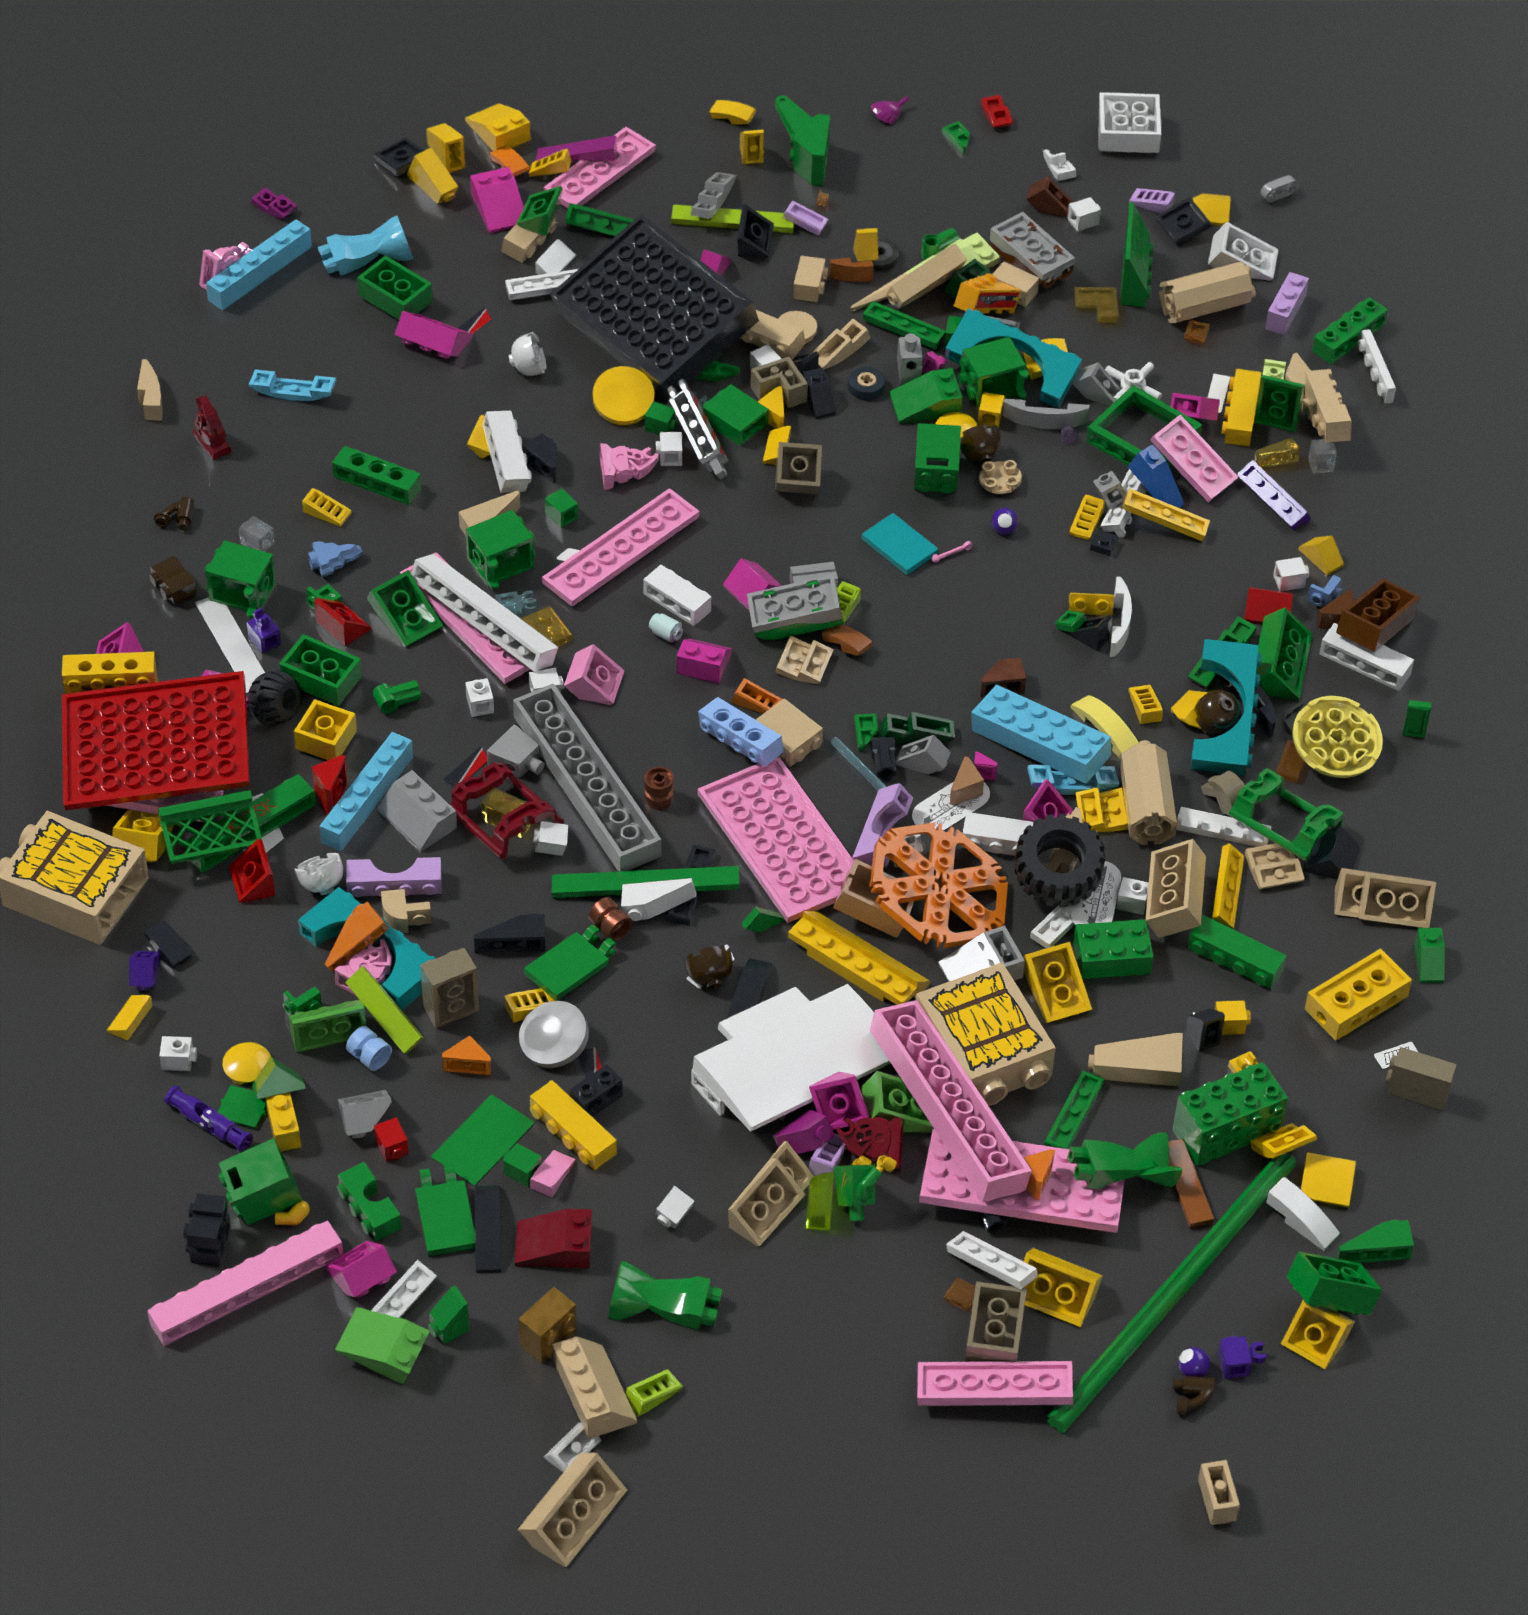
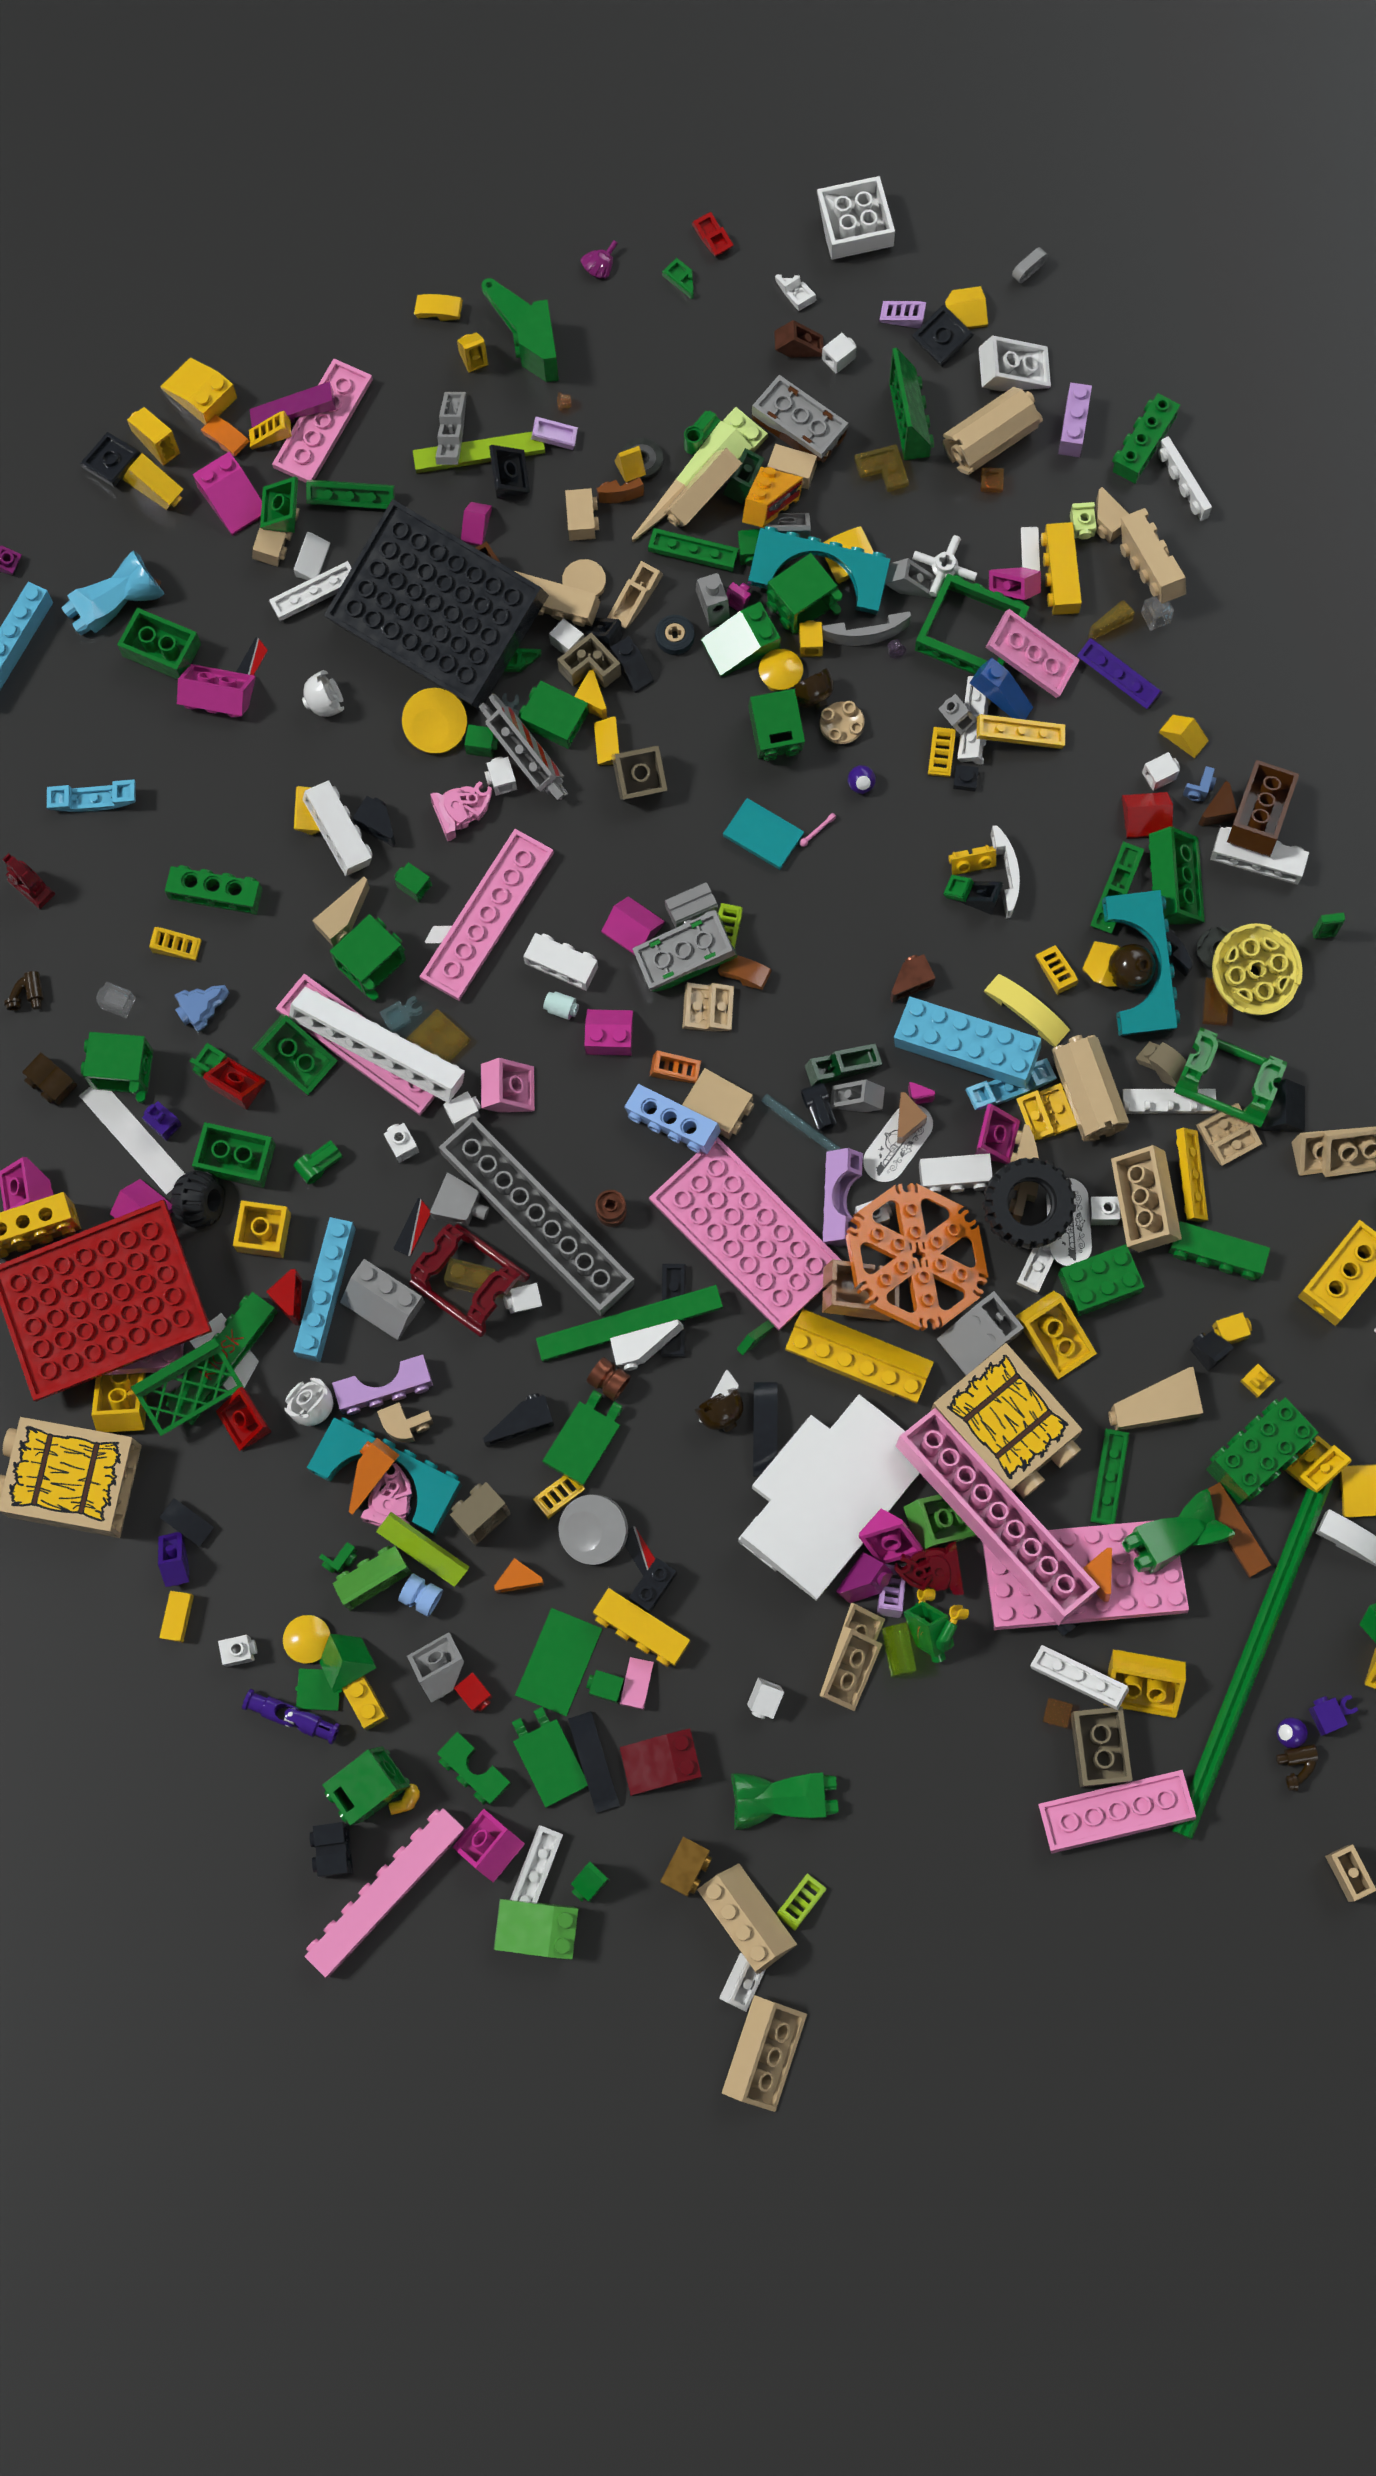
camera: 10 degrees left, 25 degrees up
(865, 728) = (791, 1075): green tile -> none
(1279, 403) = (1101, 563): green slope -> none

